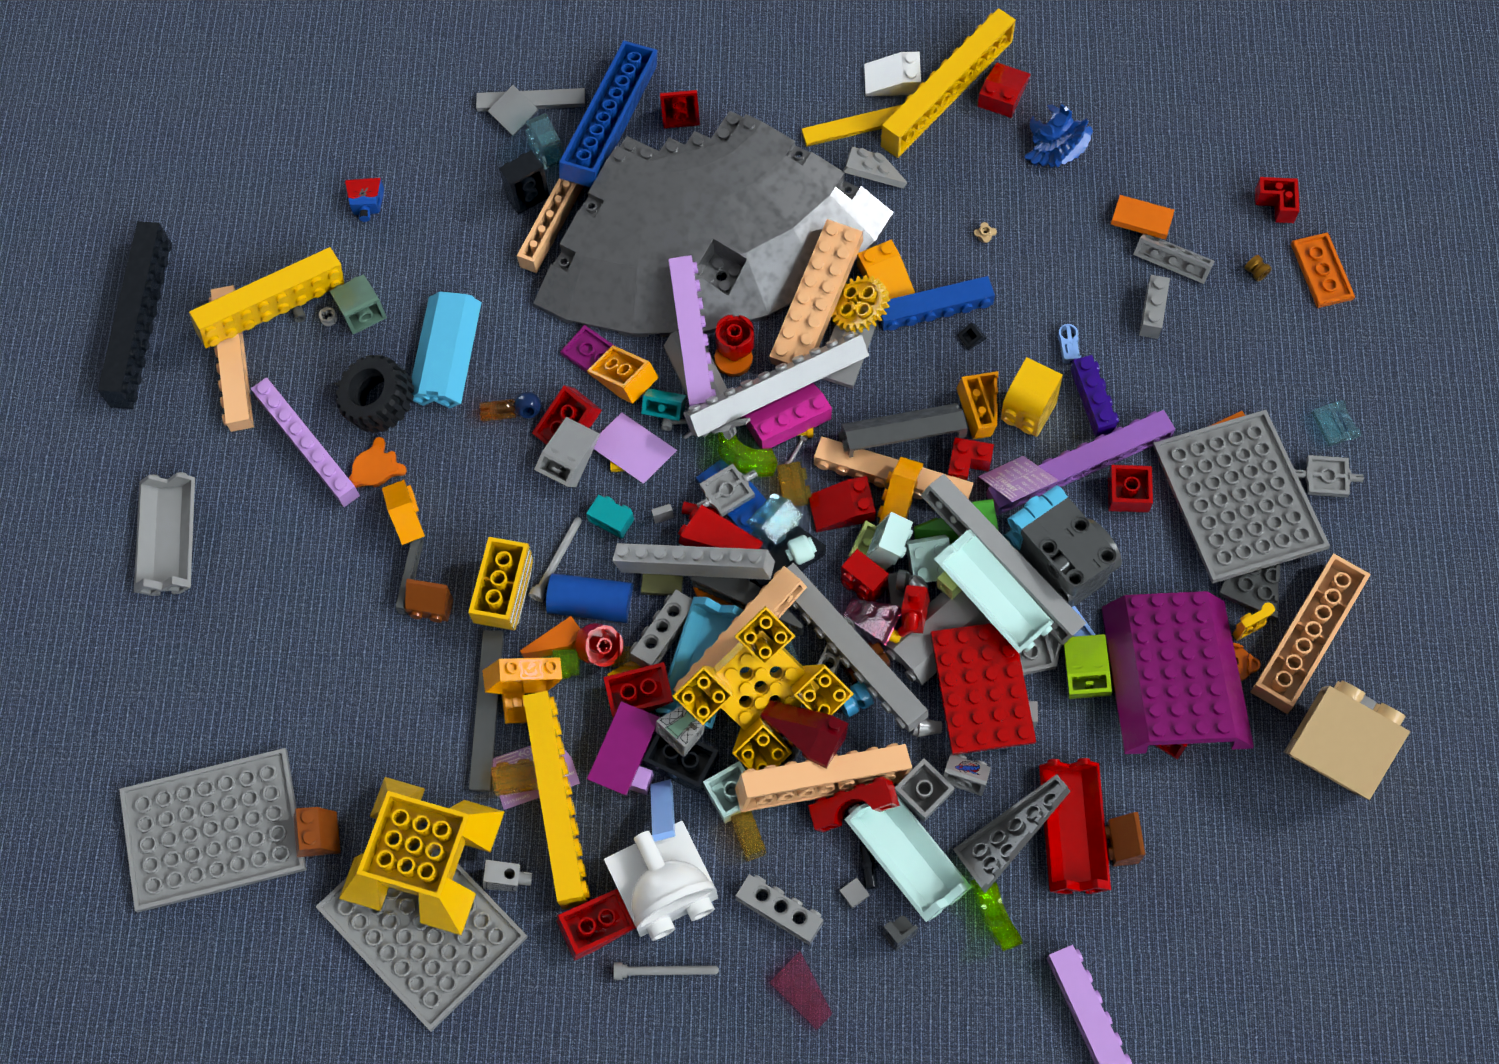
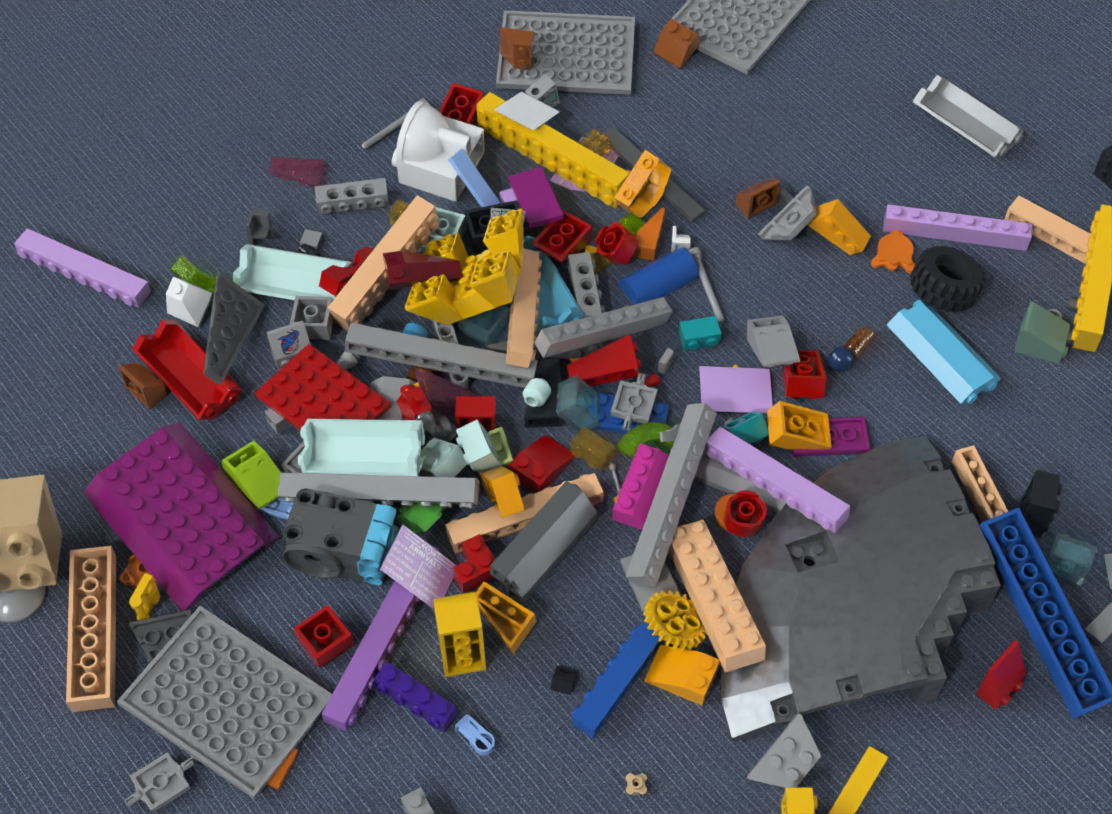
camera: 135 degrees right, 10 degrees down
(399, 814) = (599, 57): yellow slope -> none
(429, 546) = (791, 218): none -> light grey wing
(475, 941) = (517, 47): none -> dark orange slope
(501, 584) = (717, 226): yellow brick -> none
(536, 617) = (679, 240): none -> white panel
(544, 847) = (527, 110): none -> white sticker
(1022, 902) = (187, 301): none -> white slope

